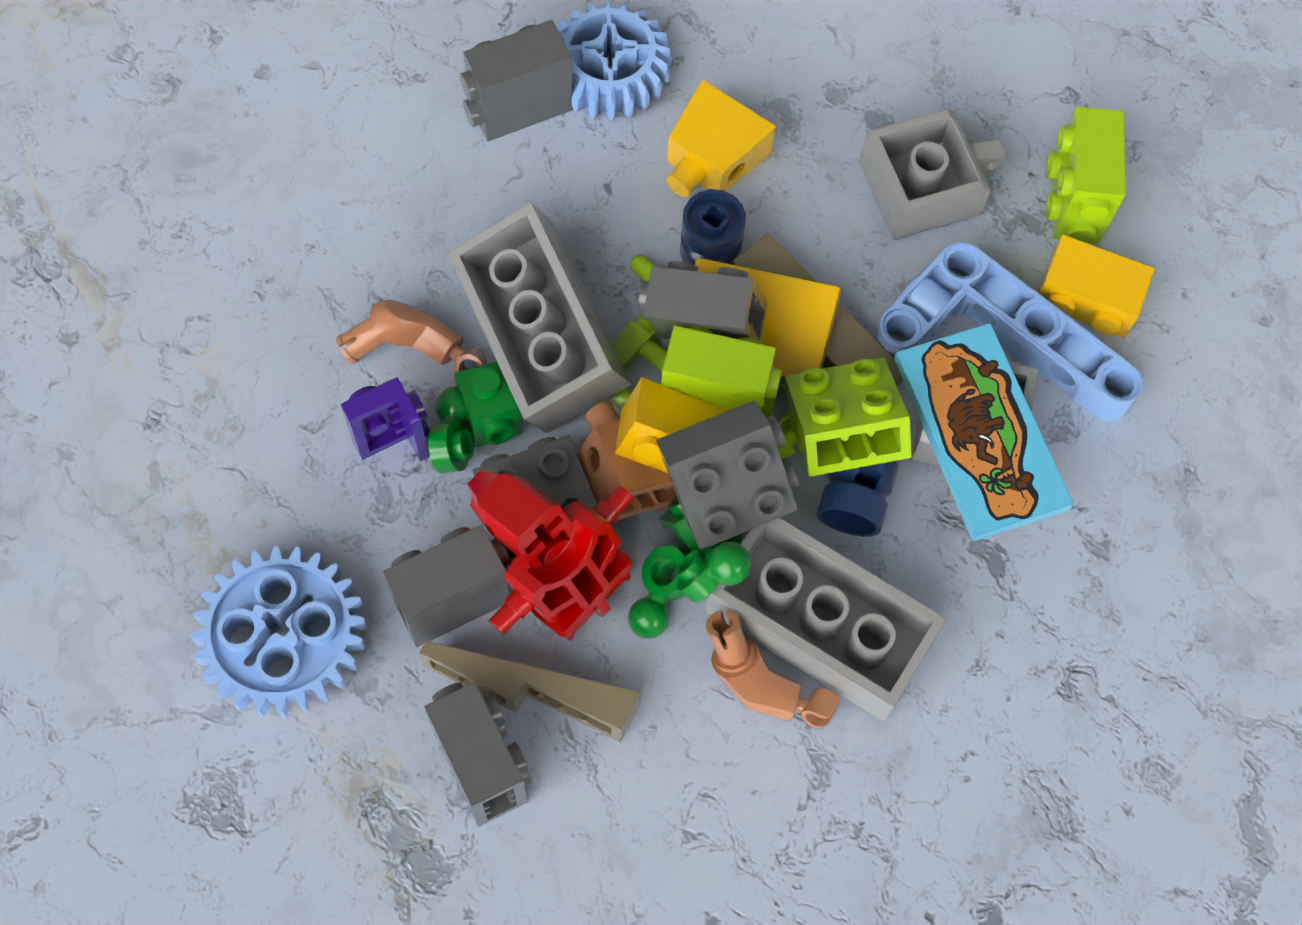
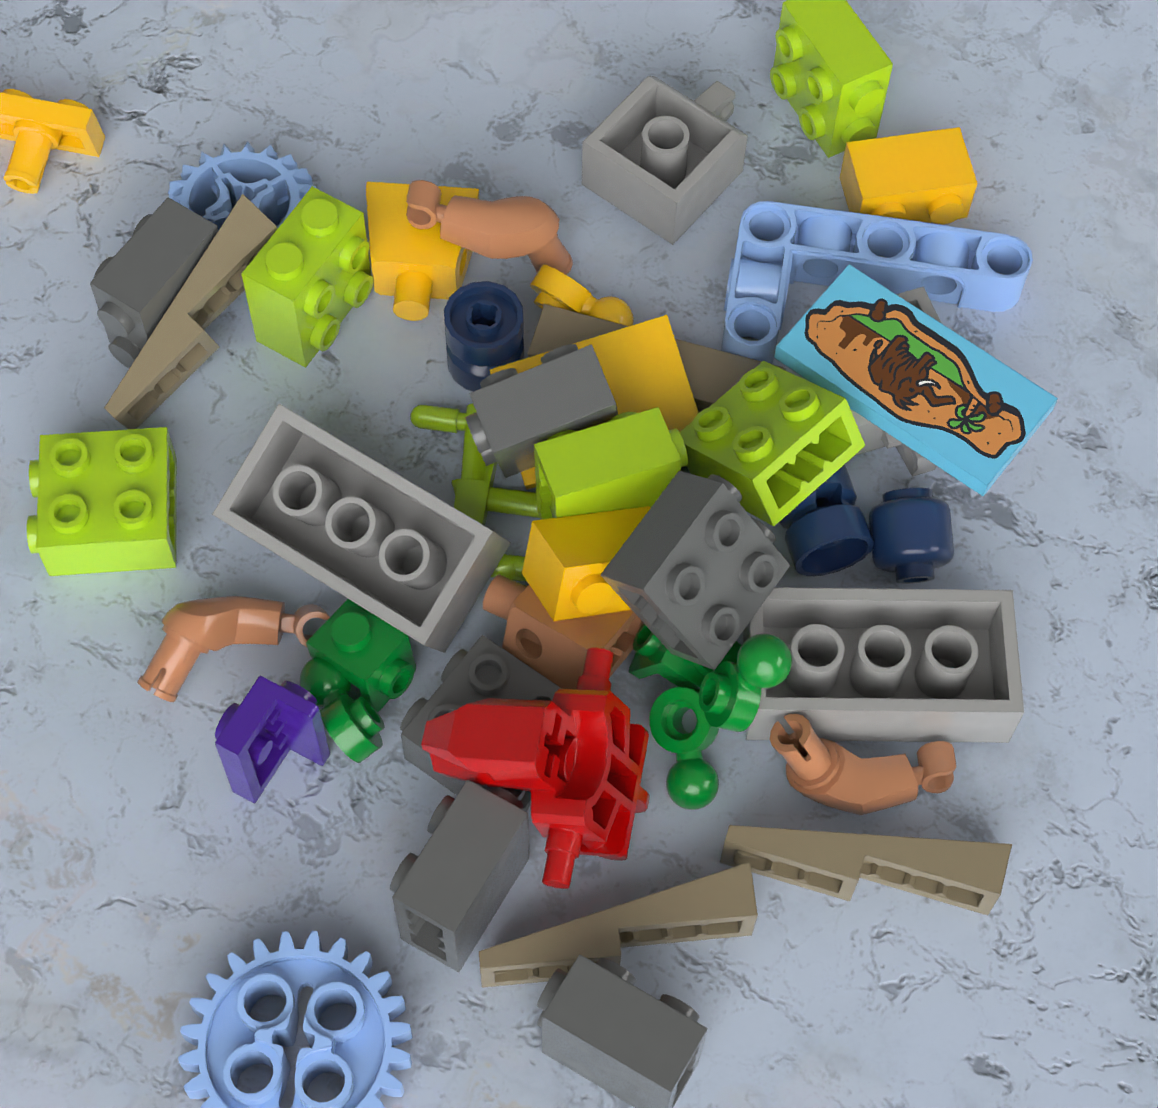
camera: 30 degrees left, 5 degrees down
(394, 205) = (104, 501): none -> lime brick
(508, 123) = (180, 338): none -> dark tan slope
(619, 125) = (309, 277): none -> lime brick
(704, 730) = (832, 862): none -> dark tan slope
(767, 161) = (492, 228): none -> nougat arm
(789, 235) = (565, 293): none -> yellow plate
(914, 539) = (911, 534): none -> dark blue head

